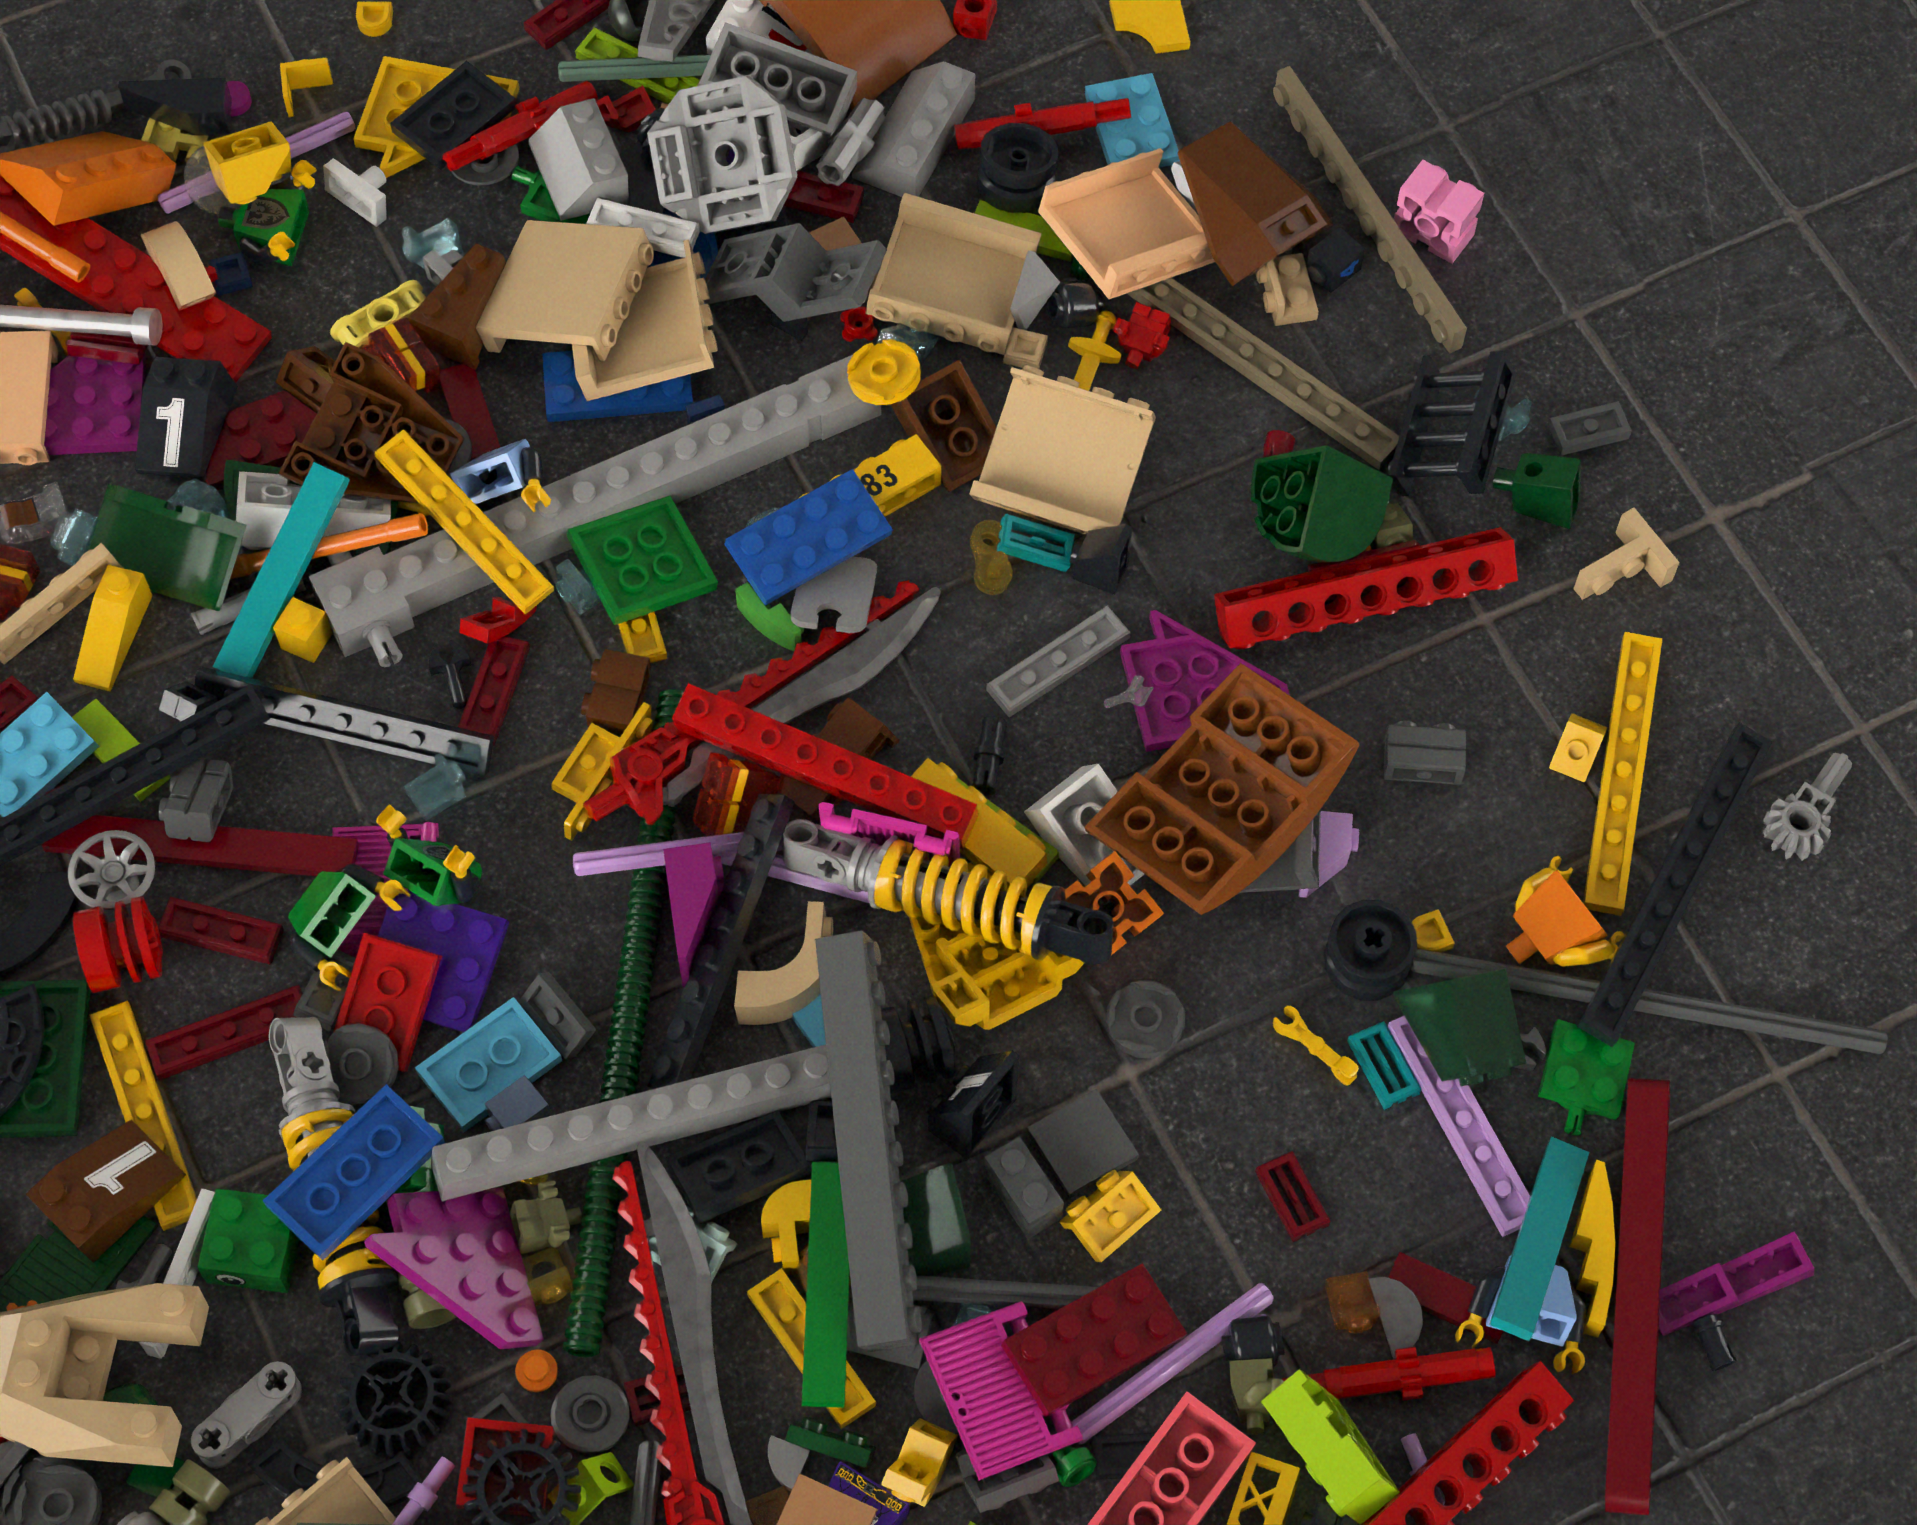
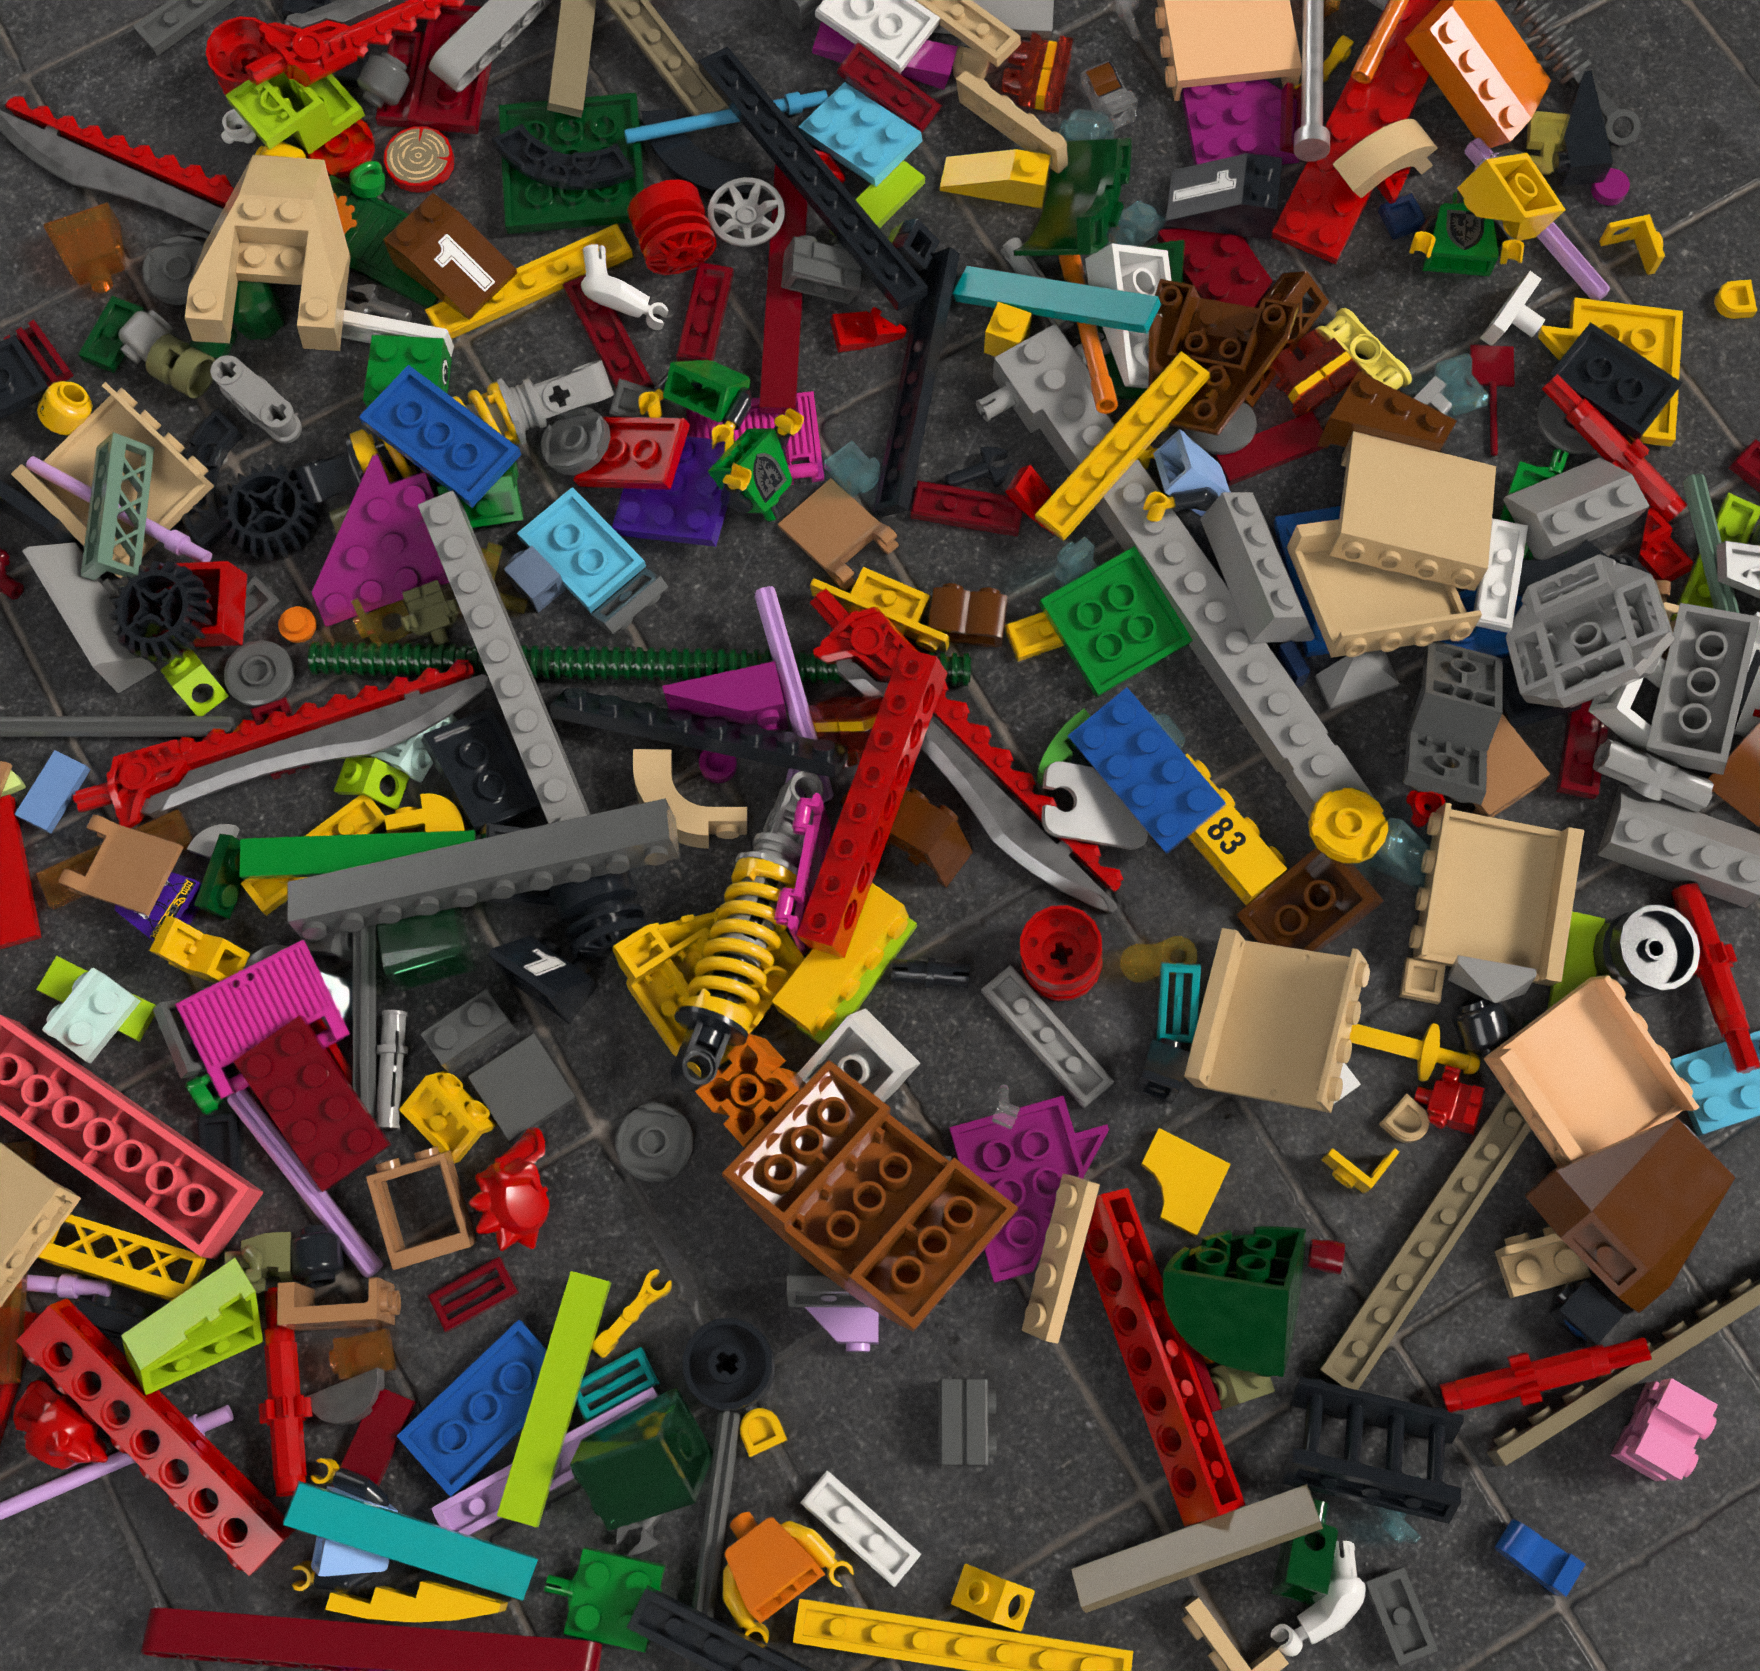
camera: 90 degrees right, 10 degrees up
(184, 1013) = (615, 292): none -> white arm
(269, 773) = (863, 330): none -> red slope
(419, 219) = (1493, 368): none -> dark red piece
(501, 814) = (834, 529): none -> medium nougat flag
(609, 424) = (1254, 570): none -> light grey slope
(727, 375) = (1356, 678): none -> light grey slope
(733, 1292) = (363, 777): none -> lime bracket
(754, 943) = (717, 766): none -> magenta tile
(981, 610) = (1065, 931): none -> red wheel
(1055, 1271) = (391, 1069): none -> light grey pin
(1155, 376) = (1406, 1121): none -> tan tile
(1191, 1139) = (512, 1194): none -> red head
(1203, 555) = (1186, 1179): none -> yellow tile
(1207, 419) = (1350, 1175): none -> yellow bracket
(1245, 1224) = (399, 1254): none -> medium nougat window
(1277, 655) = (1060, 1258): none -> tan plate
(1314, 1348) = (299, 1313): none -> medium nougat panel
(1390, 304) = (1528, 1377): none -> red piece
(1401, 1108) = (554, 1399): none -> lime tile
(1406, 1182) = (478, 1411): none -> blue plate
(1518, 853) = (860, 1528): none -> white tile
(1539, 569) = (1196, 1548): none -> dark tan tile
(1541, 319) = (1539, 1558): none -> blue leg
(1593, 483) = (1332, 1611): none -> white arm

